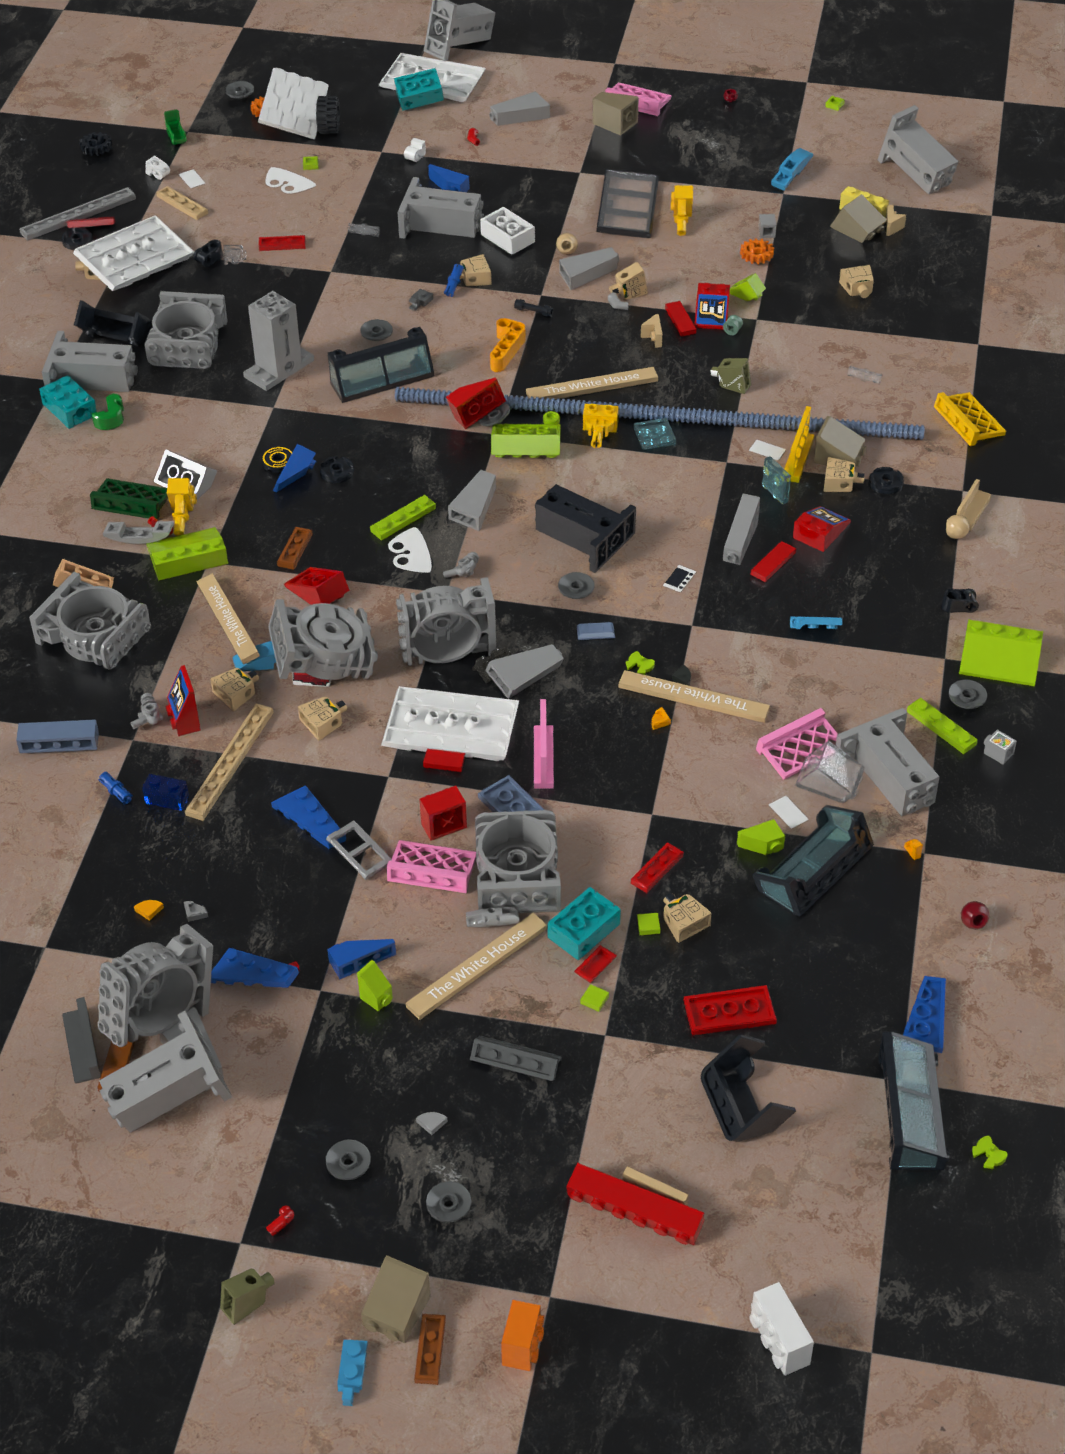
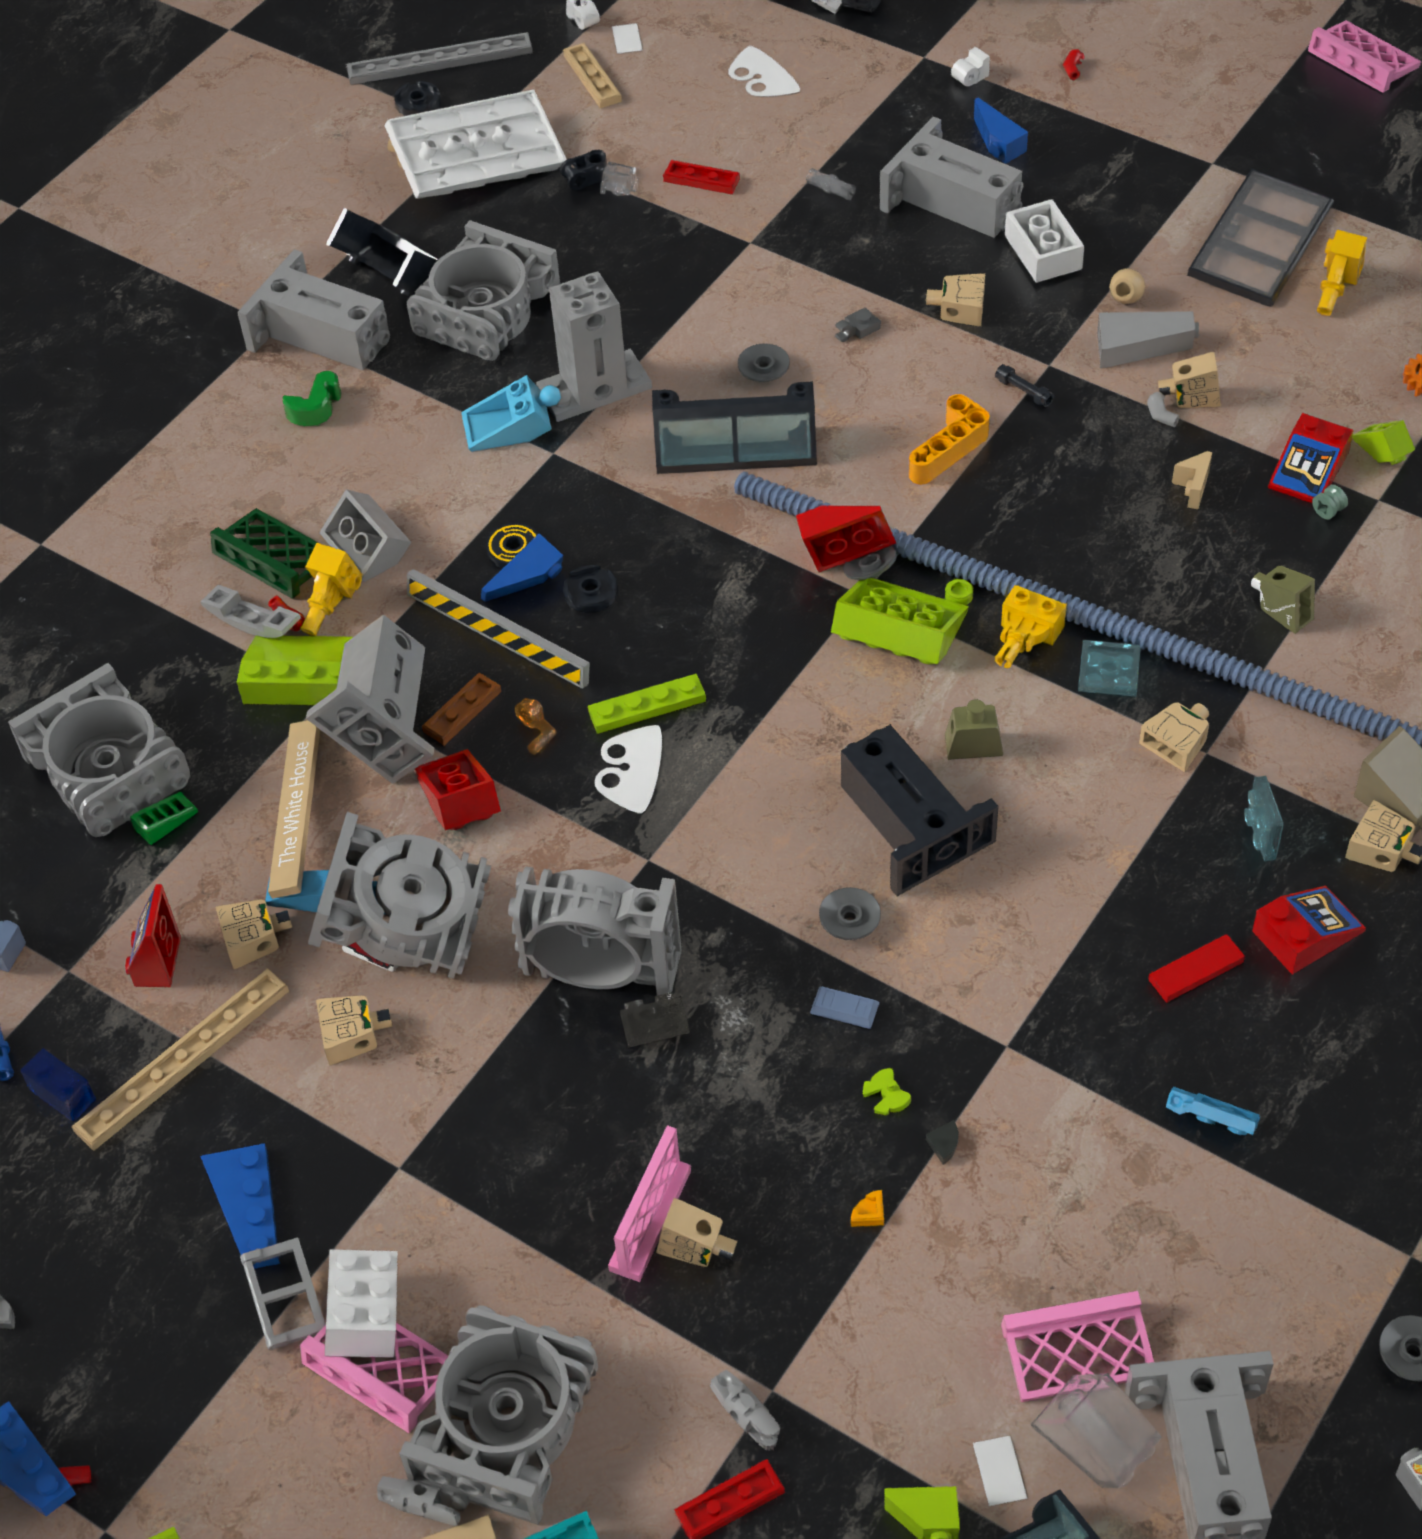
camera: 25 degrees right, 5 degrees up
(68, 401) = (265, 365): teal piece -> none
(87, 575) = (135, 670): light nougat slope -> none
(91, 222) = (447, 77): red tile -> none
(143, 657) = (160, 828): none -> green slope
(150, 712) = (110, 933): light grey piece -> none
(238, 392) = (510, 415): none -> medium azure slope
(252, 549) = (377, 701): none -> light grey brick
(294, 501) = (498, 628): none -> tile
(310, 163) = (808, 52): lime tile -> none
(339, 539) = (531, 714): none -> clear orange plate
(354, 955) = (175, 1491): blue slope -> none
(410, 836) = (361, 1303): none -> white brick
(443, 813) = (433, 1275): red brick -> none
(444, 760) = (494, 1169): red tile -> none
(450, 723) = (536, 1105): white piece -> none
(453, 280) = (920, 307): blue pin -> none
(465, 566) = (694, 822): light grey piece -> none
(473, 501) = (766, 707): light grey slope -> none
(508, 797) = (558, 1286): sand blue tile -> none
(520, 109) = (1166, 34): light grey slope -> none
(523, 669) = (688, 1046): light grey slope -> none
(574, 754) = (693, 1235): none -> tan torso
(594, 384) = (1054, 549): tan tile -> none
(598, 481) = (973, 732): none -> olive torso
(615, 111) = (1312, 72): dark tan slope -> none
(645, 824) = (746, 1409): none -> light grey hinge
(679, 578) = (1027, 950): black sticker -> none
(680, 318) = (1251, 466): red tile -> none
(694, 696) = (946, 1188): tan tile -> none
(707, 455) = (1176, 733): none -> tan torso
(742, 529) = (1165, 895): light grey slope -> none
(767, 449) = (1285, 750): white sticker -> none
(800, 448) = (1333, 768): yellow fence -> none
(942, 725) = (1343, 1394): lime plate -> none

